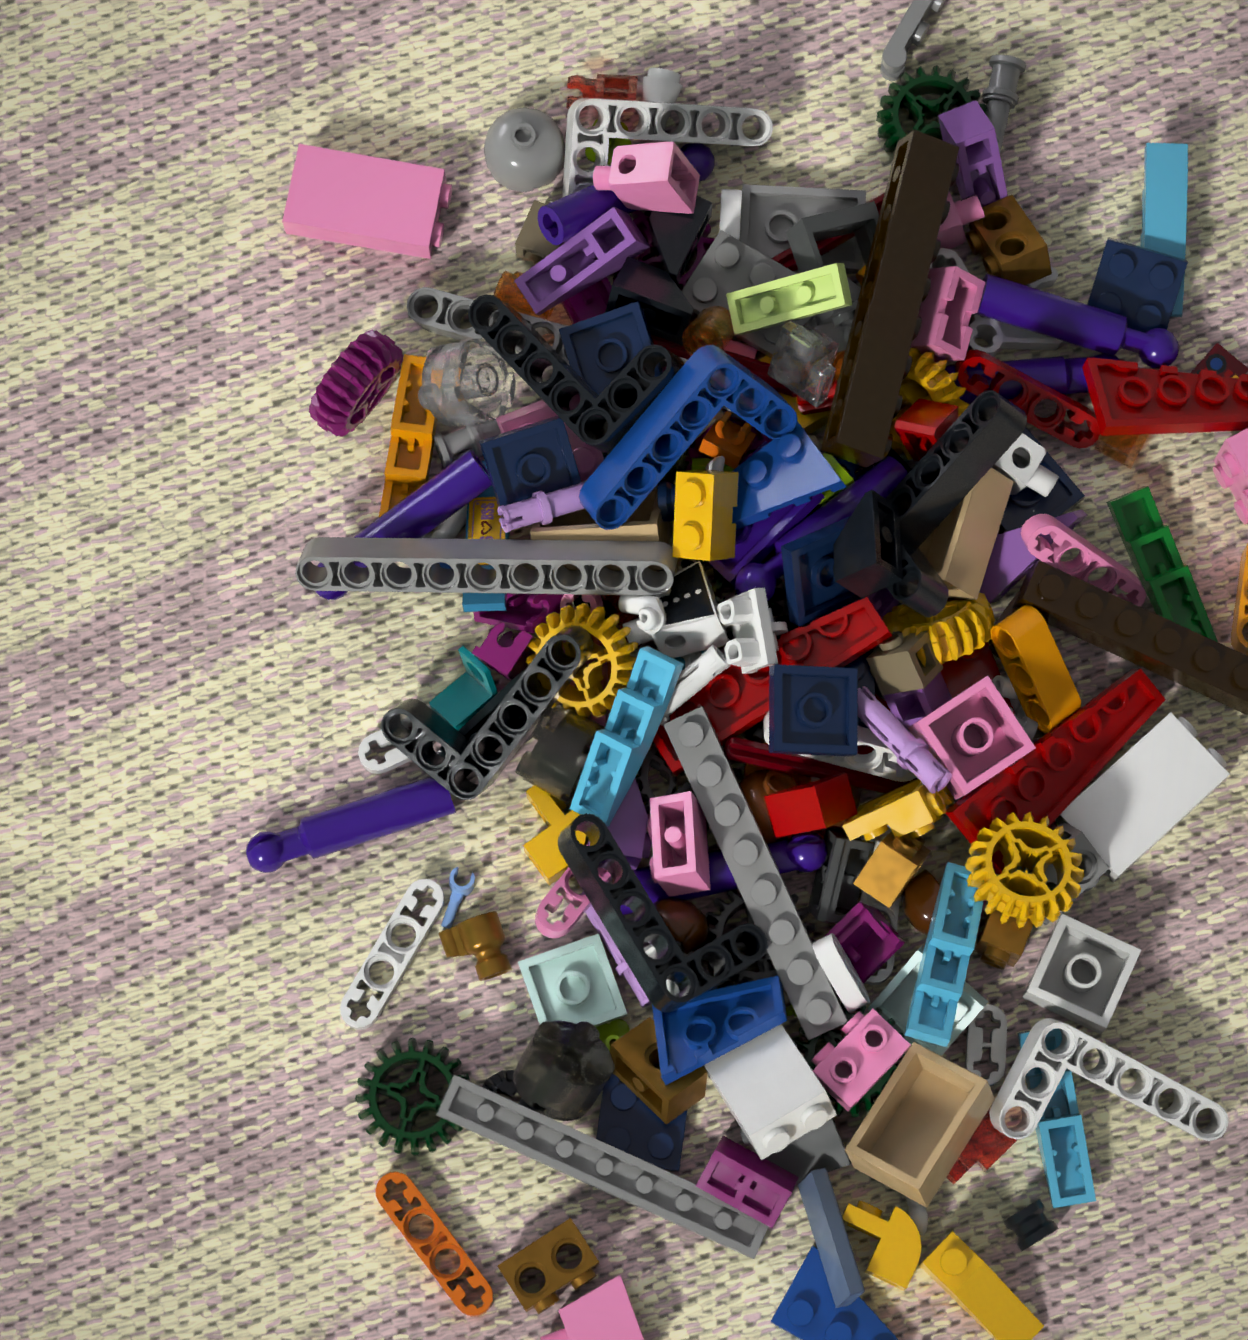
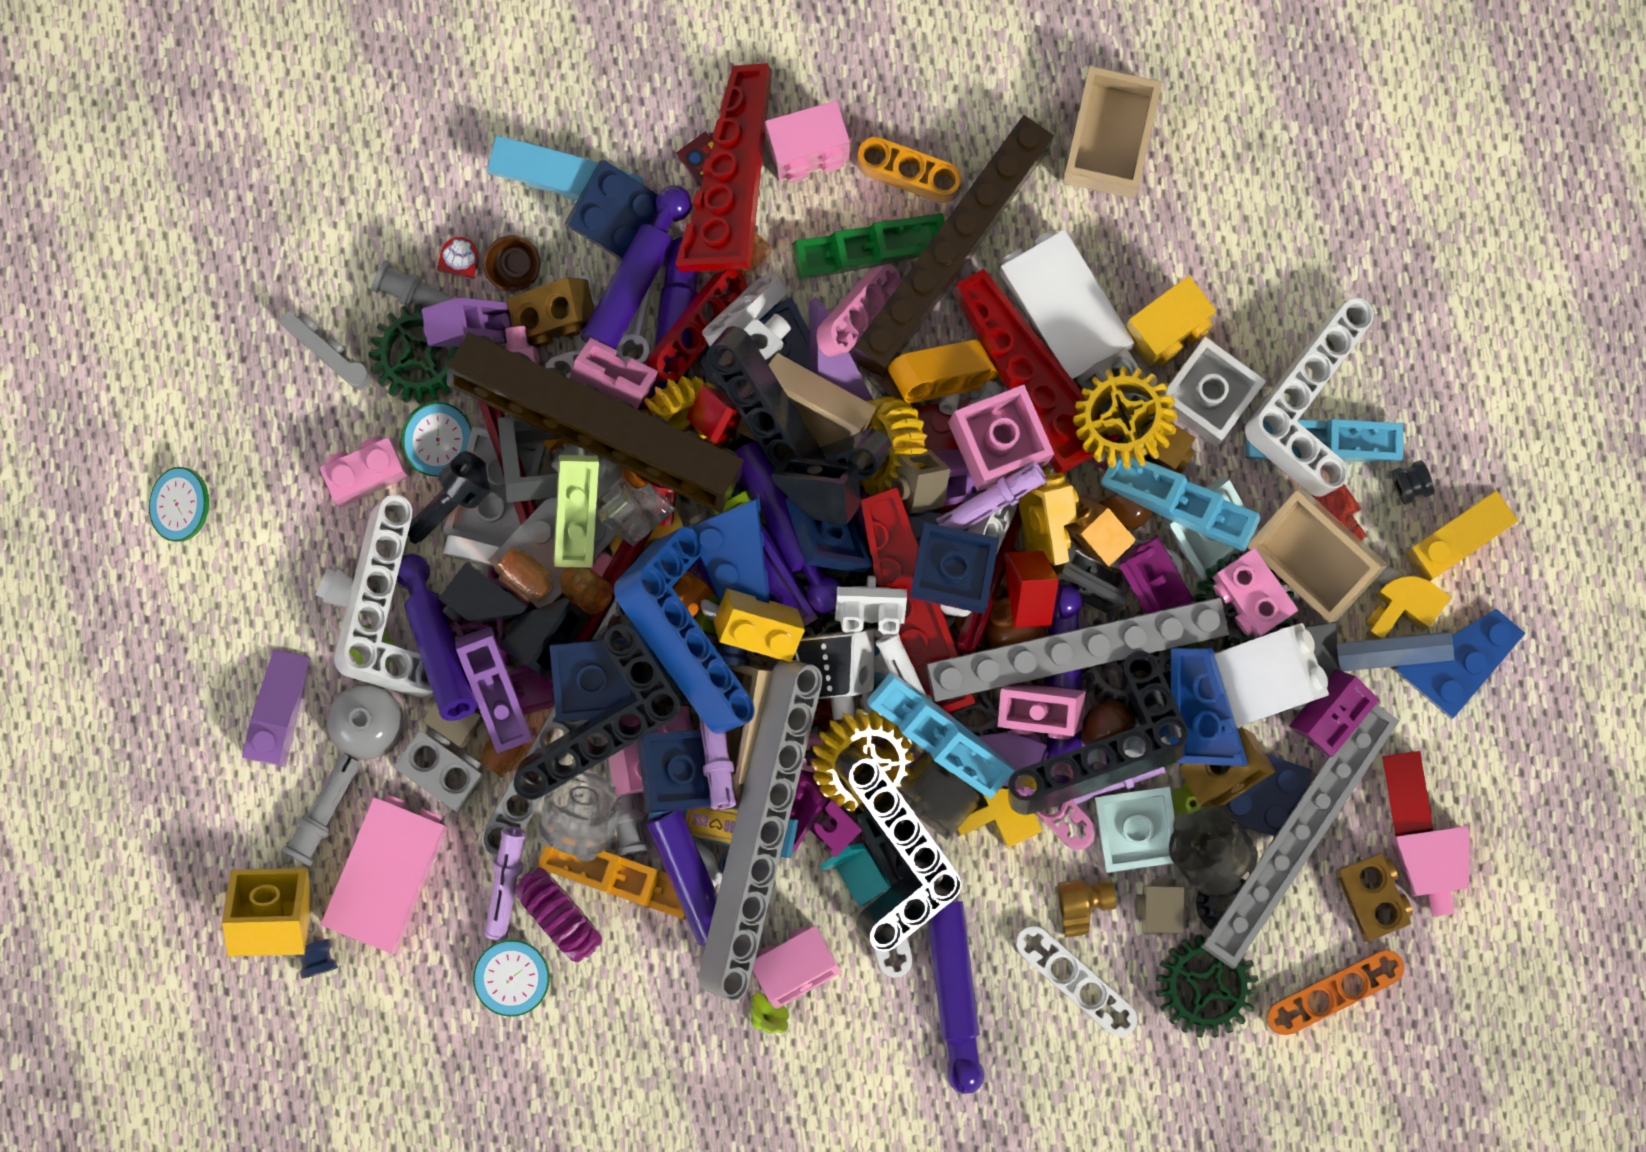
camera: 80 degrees left, 5 degrees up
(264, 150) = (316, 959): none -> dark blue wheel
(281, 352) = (511, 978): none -> piece
(294, 629) = (766, 1016): none -> lime plant
(301, 86) = (267, 912): none -> yellow brick
(349, 644) = (795, 966): none -> bright pink brick
(393, 320) = (507, 869): none -> lavender pin
(403, 120) = (314, 825): none -> light grey pin
(456, 897) = (1037, 916): light blue hand -> none
(479, 232) = (435, 777): none -> light grey brick
(490, 1030) = (1161, 907): none -> dark tan brick
(516, 56) = (277, 709): none -> medium lavender slope
(604, 87) = (324, 637): clear red plate -> none
(649, 609) = (834, 692): white arm -> none
(650, 178) = (437, 612): bright pink torso -> none
(673, 1283) = (1407, 793): none -> red slope
(710, 264) = (524, 575): none -> clear orange brick
(790, 185) = (459, 487): none -> black piece
(791, 89) = (363, 471): none -> bright pink brick
(841, 972) = (1176, 594): white beam -> none
(843, 154) = (434, 437): none -> piece
(996, 1047) = (1257, 478): white beam -> none
(1047, 141) = (459, 258): none -> tile
(1052, 193) = (512, 263): none -> reddish brown hair
(1063, 451) = (748, 306): none -> white beam
(1149, 911) = (1169, 322): none -> yellow brick

